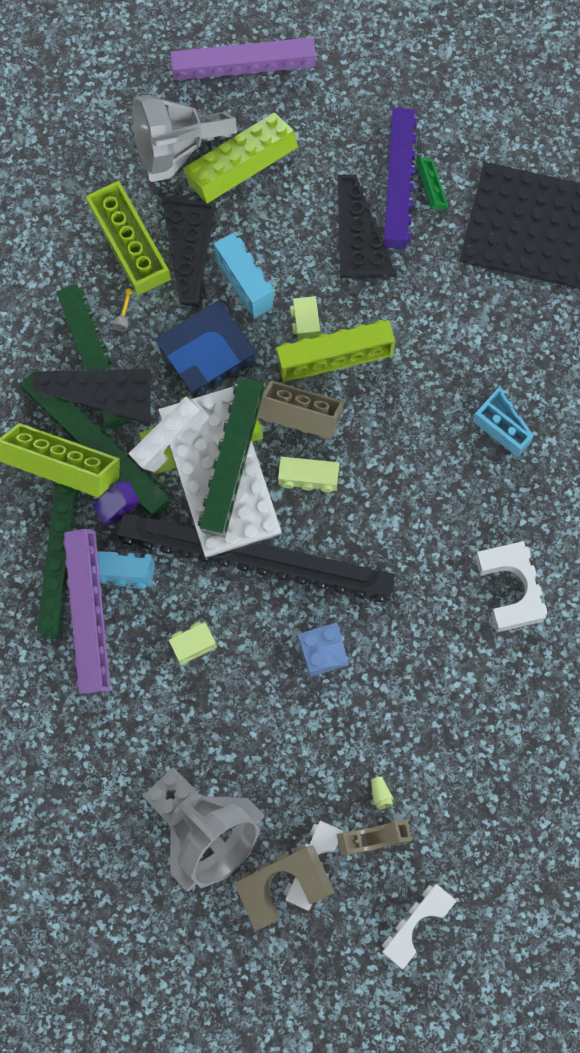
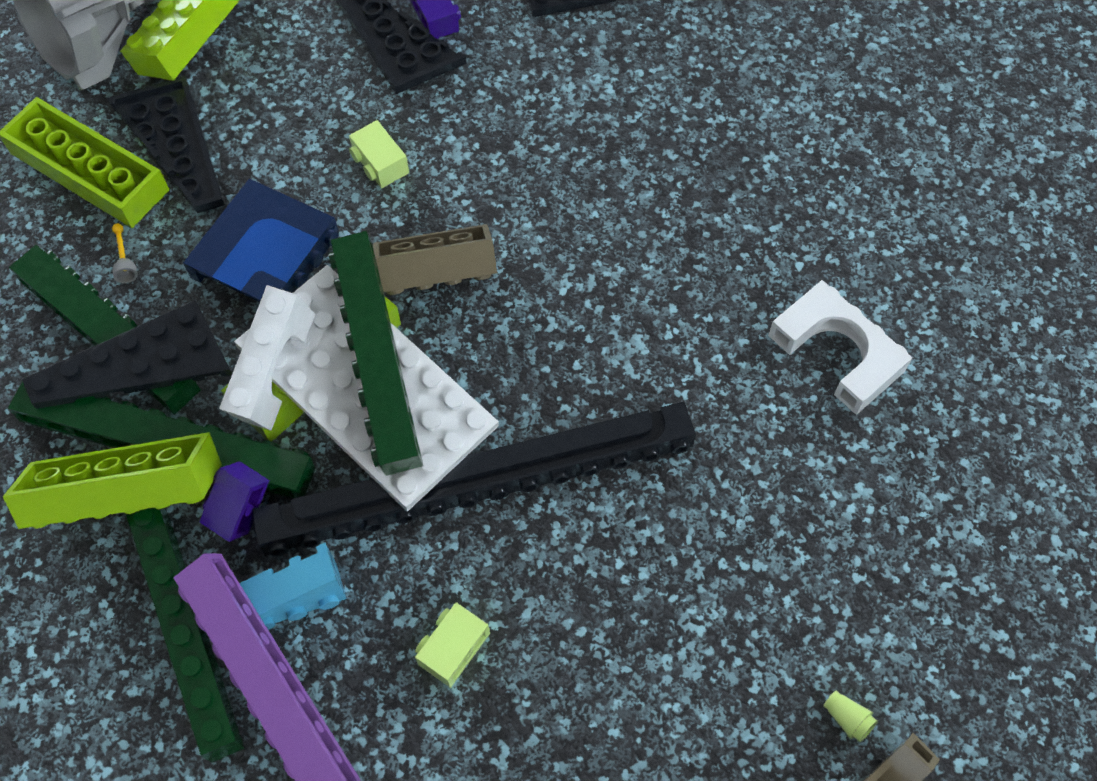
camera: 30 degrees left, 10 degrees down
(244, 275) = (267, 136): medium azure brick -> none
(308, 474) = (490, 335): yellowish green brick -> none
(323, 649) = (645, 554): medium blue slope -> none
(335, 350) = (439, 170): lime brick -> none
(503, 423) = (705, 159): medium azure wedge -> none

